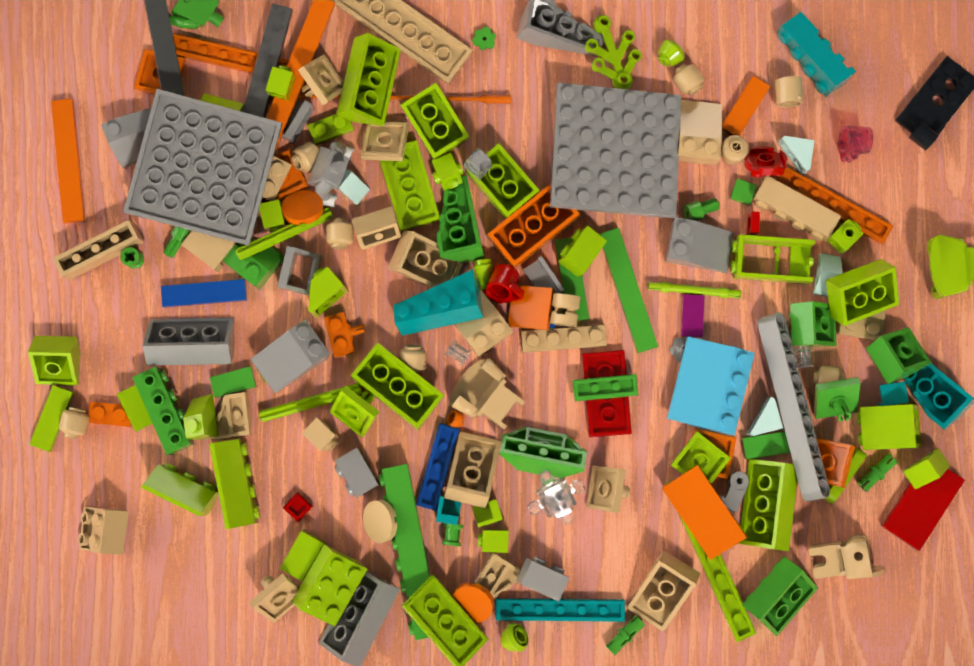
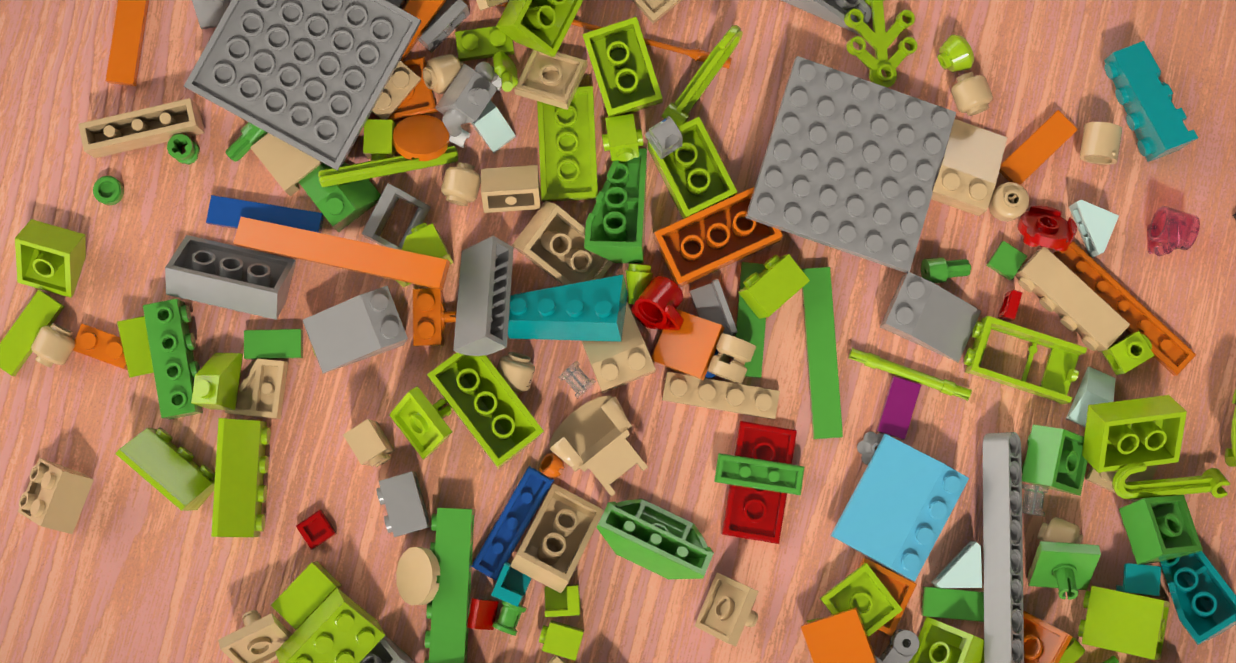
camera: 15 degrees right, 0 degrees up
(85, 301) = (108, 190): none -> bright green tile
(267, 303) = (342, 253): none -> orange tile
(304, 404) = (359, 396): lime axle -> none
(351, 143) = (506, 70): none -> lime piece
(377, 311) = (484, 298): none -> light grey brick
(432, 537) = (482, 614): none -> red tile
(494, 114) = (680, 109): none -> lime piece
(556, 497) = (657, 603): clear piece -> none
(925, 313) = (1210, 481): none -> lime piece

